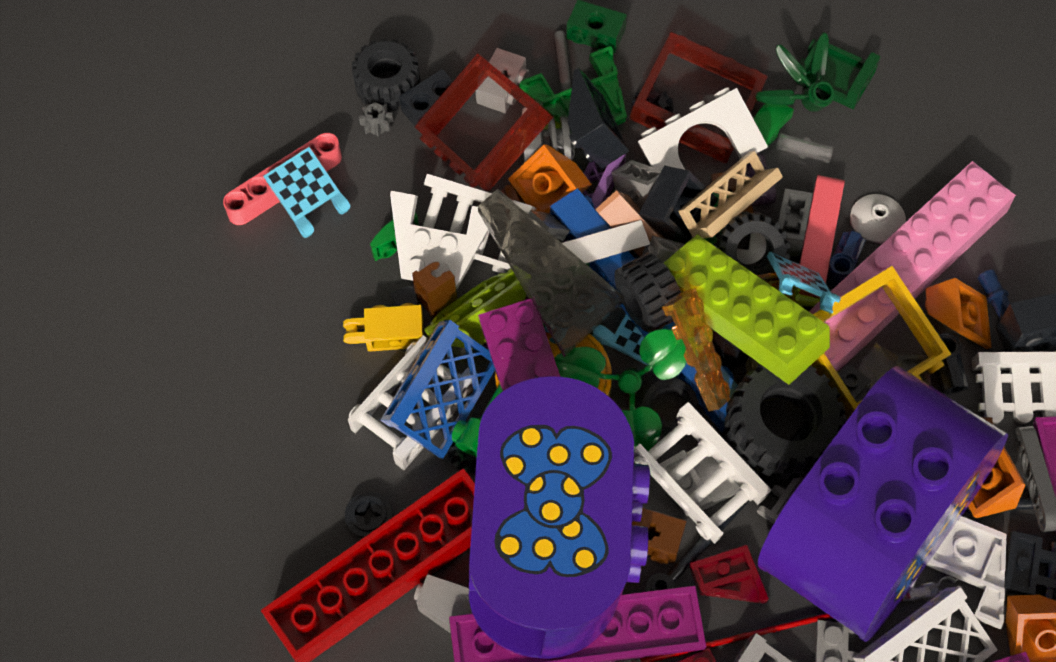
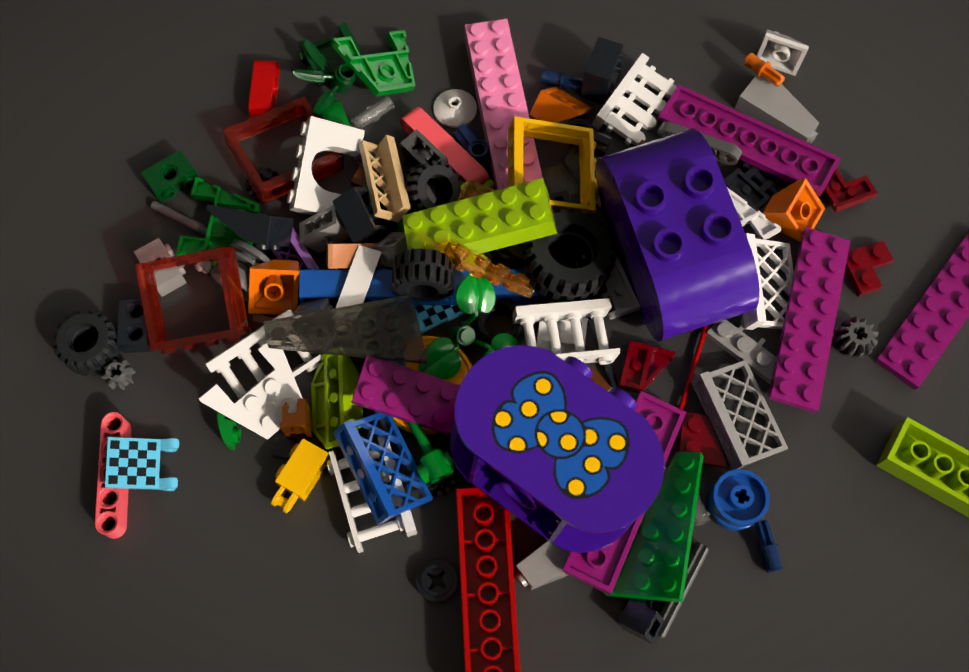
camera: 60 degrees left, 5 degrees up
(752, 37) = (263, 87): none -> red beam
(796, 275) = (484, 174): medium azure flag -> none
(855, 125) = (381, 72): none -> green wing

